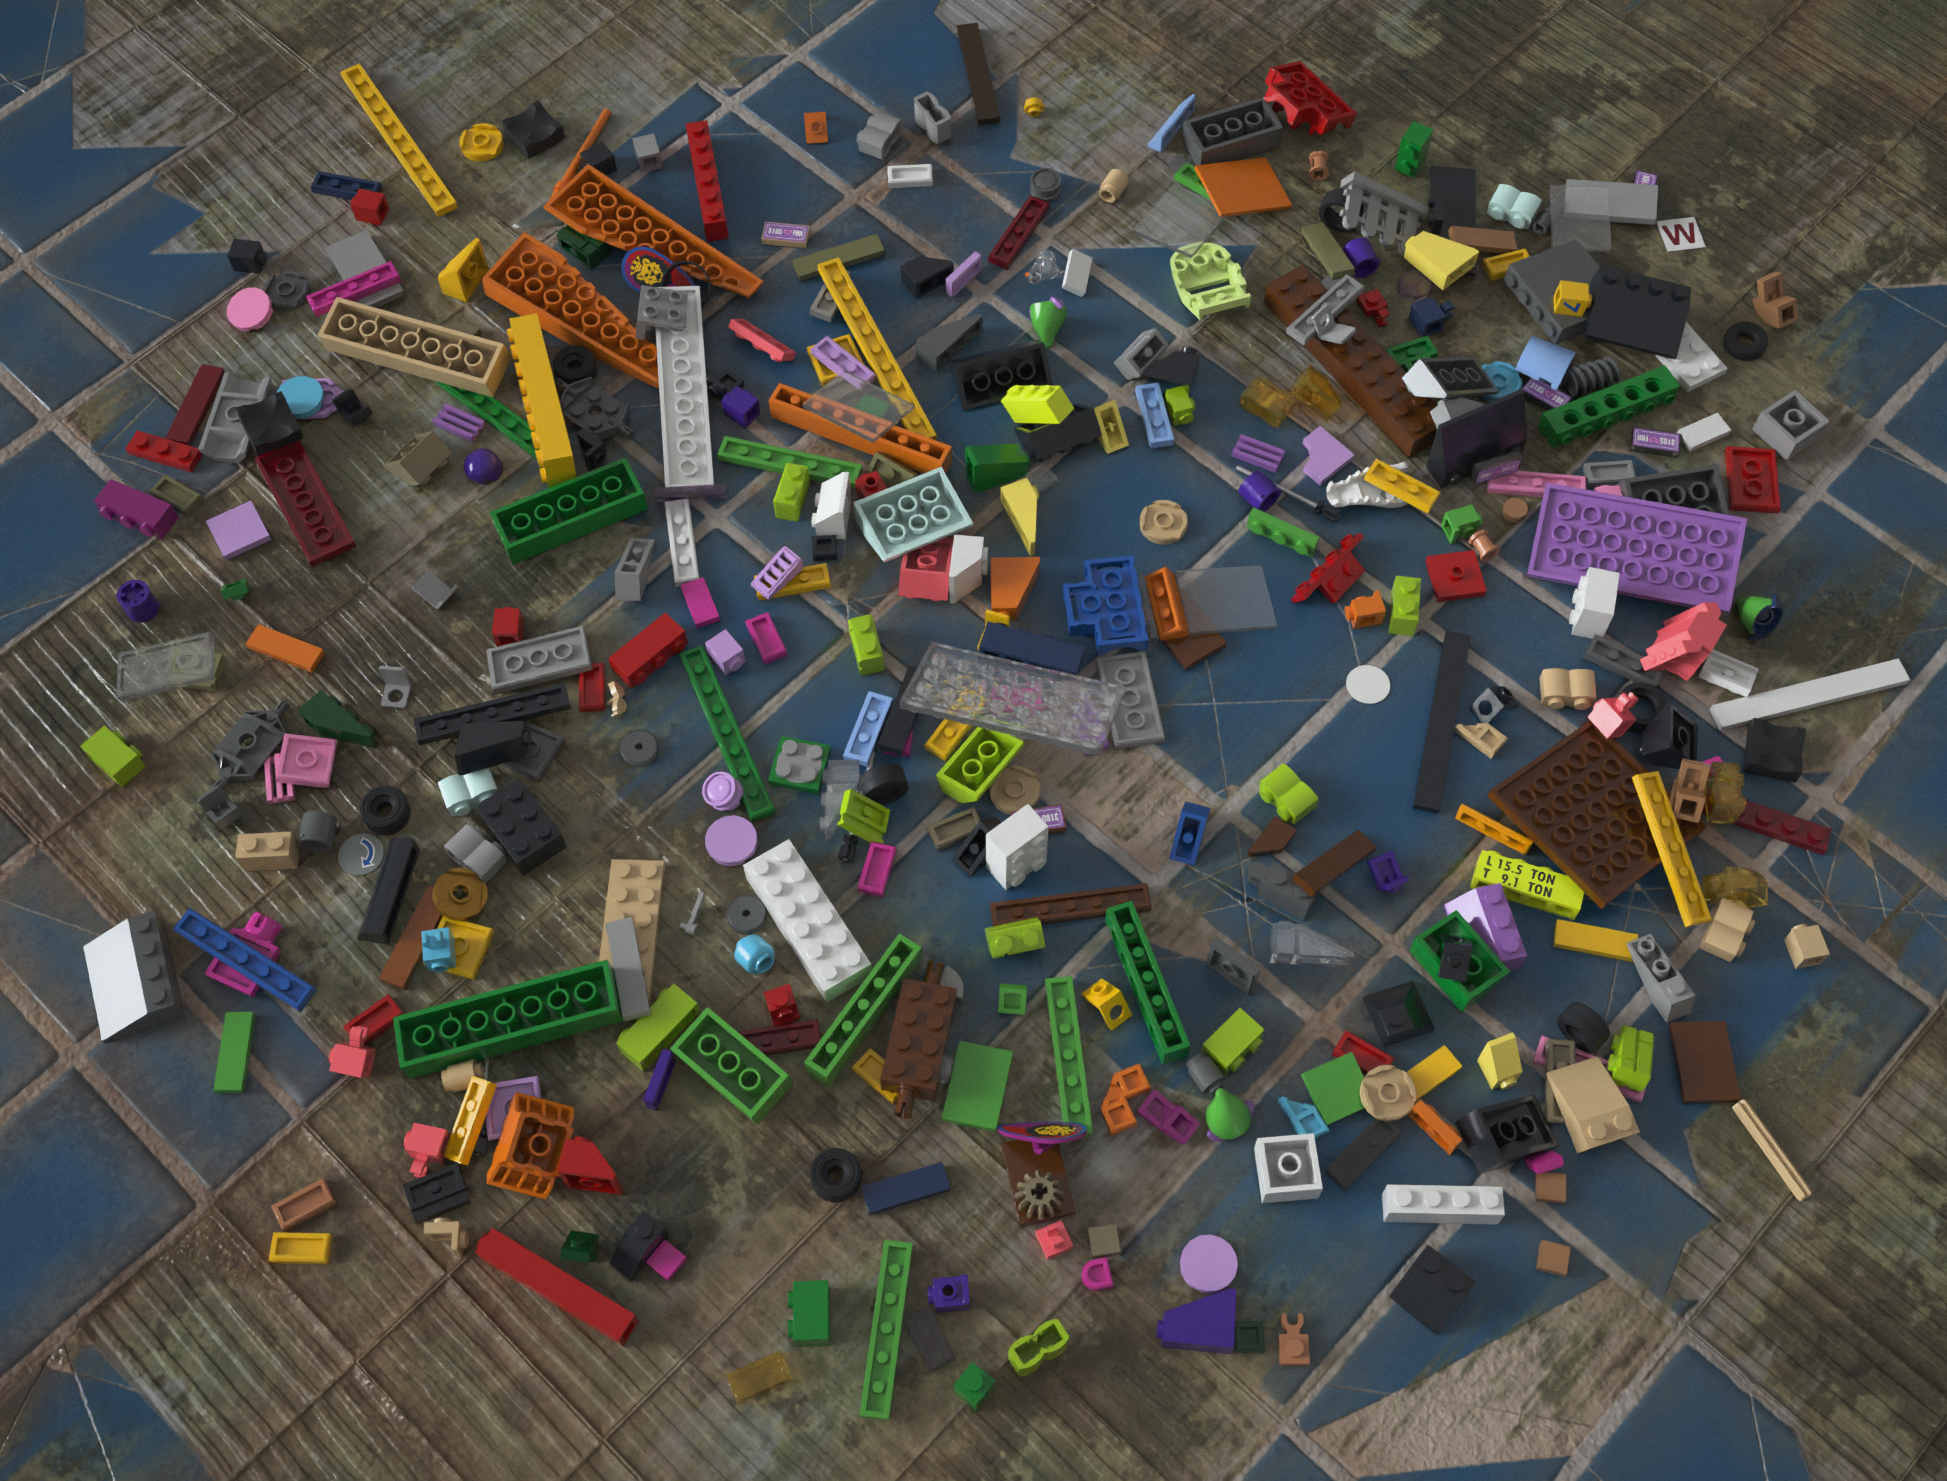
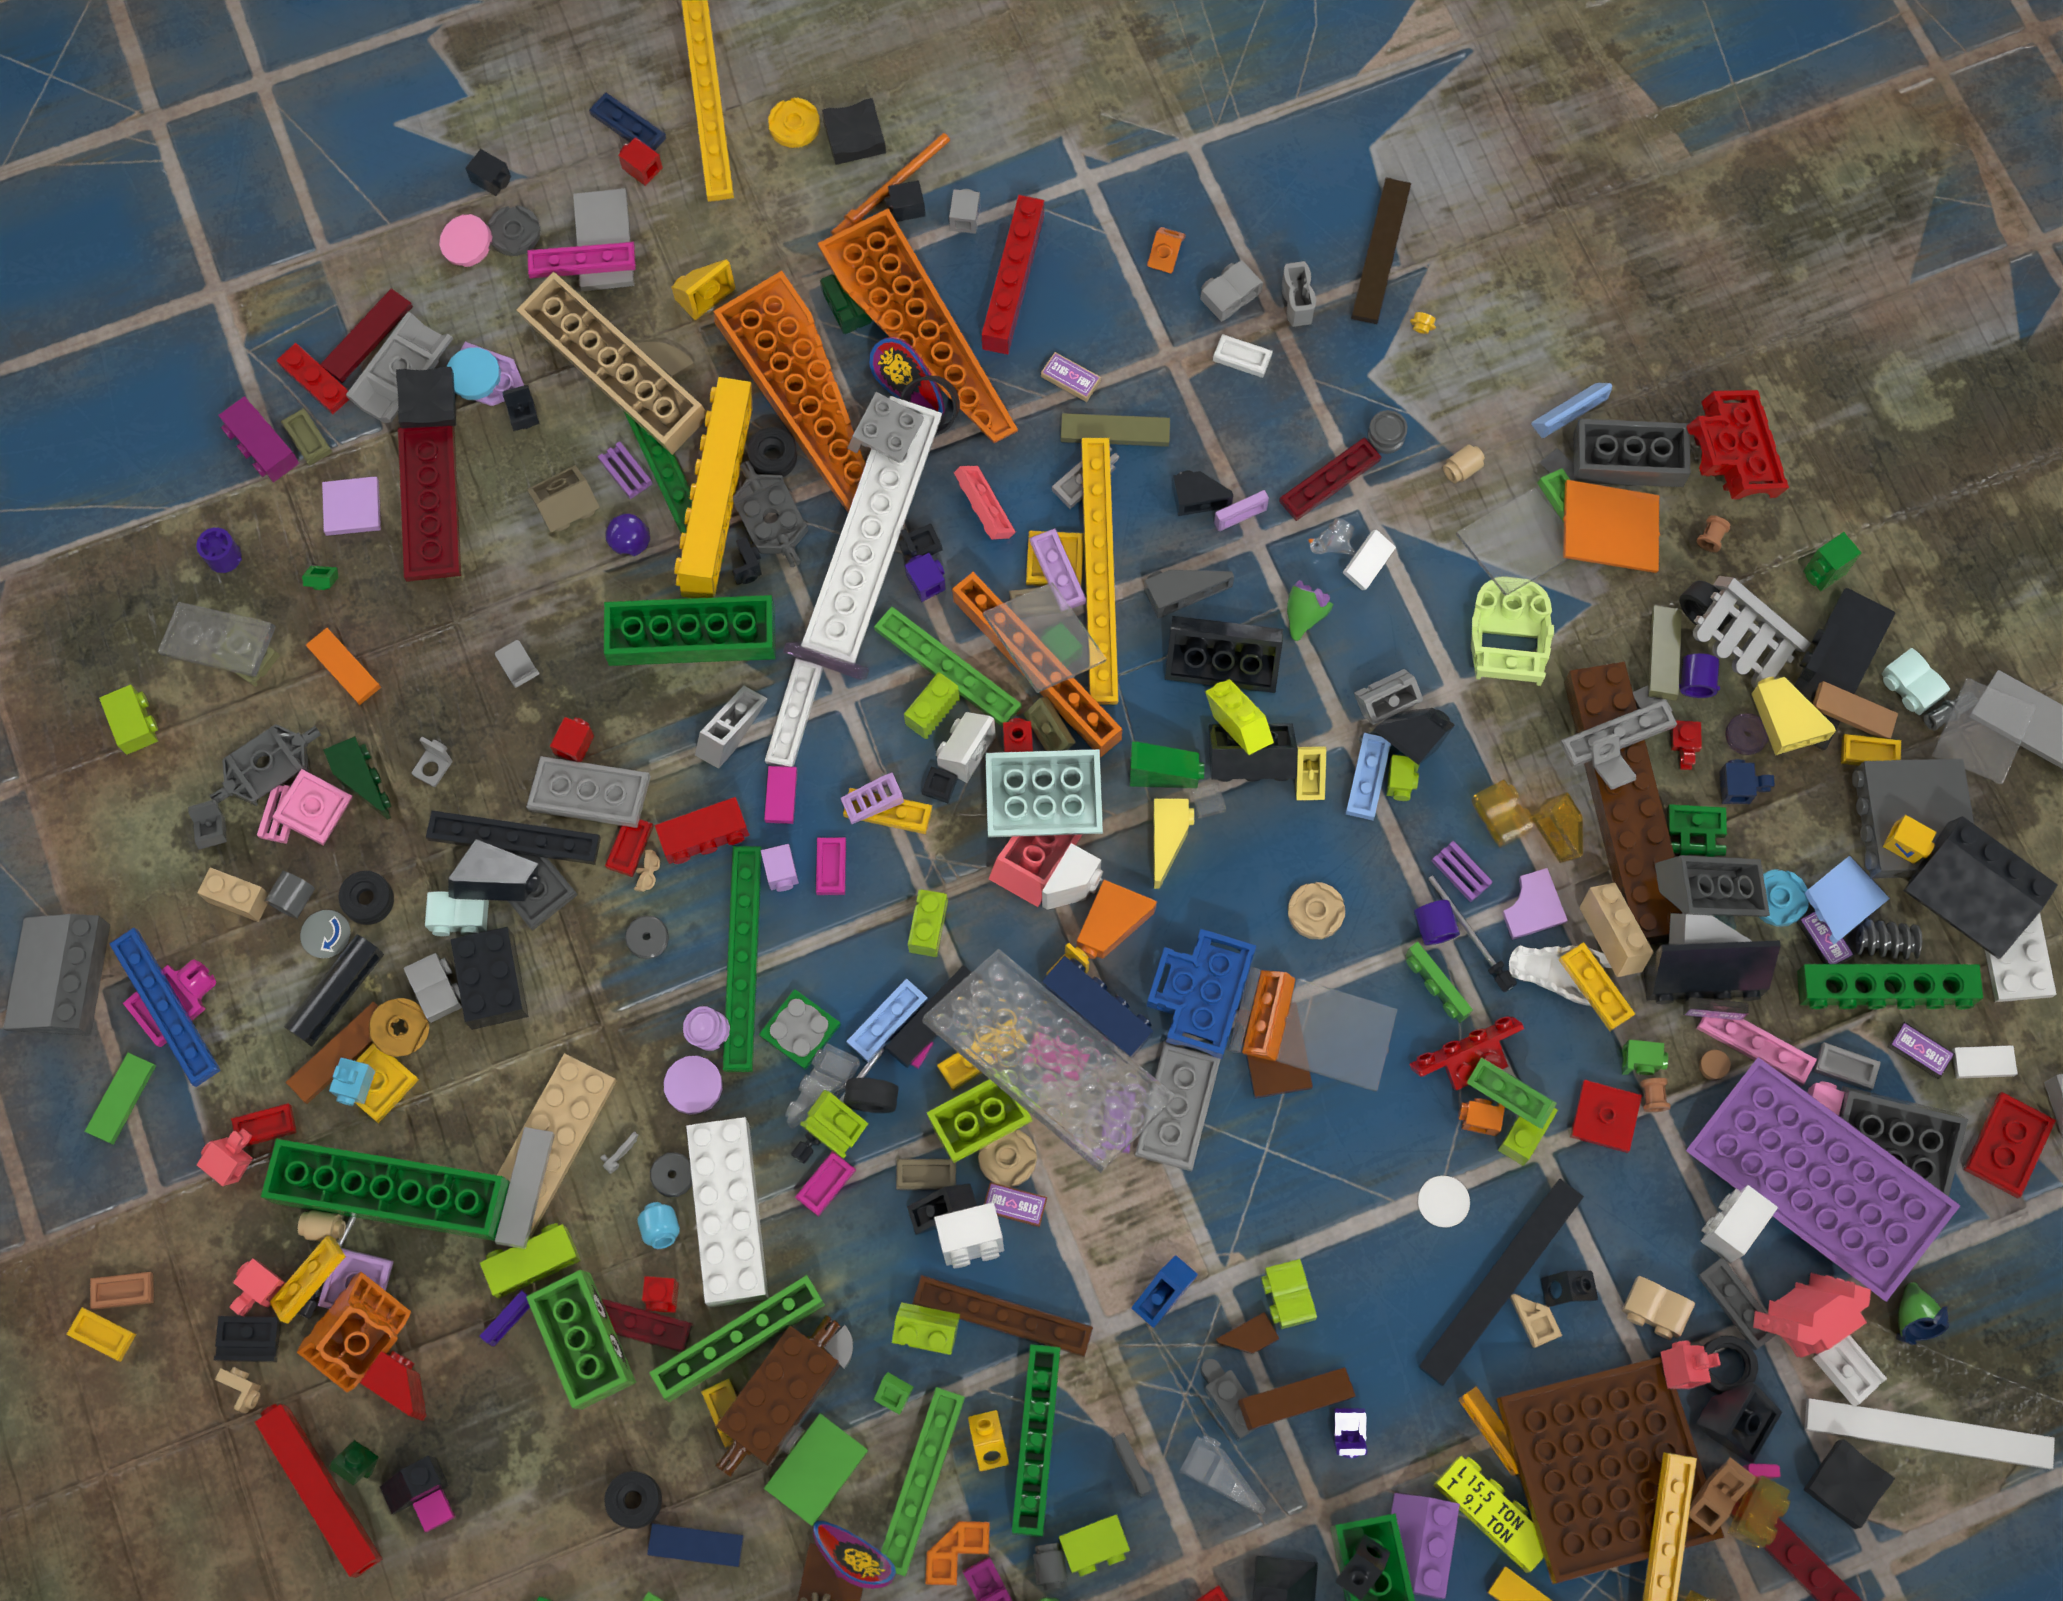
camera: 25 degrees right, 10 degrees up
(1381, 578) = (1511, 1093): none -> bright green plate
(1395, 441) = (1616, 929): none -> tan brick

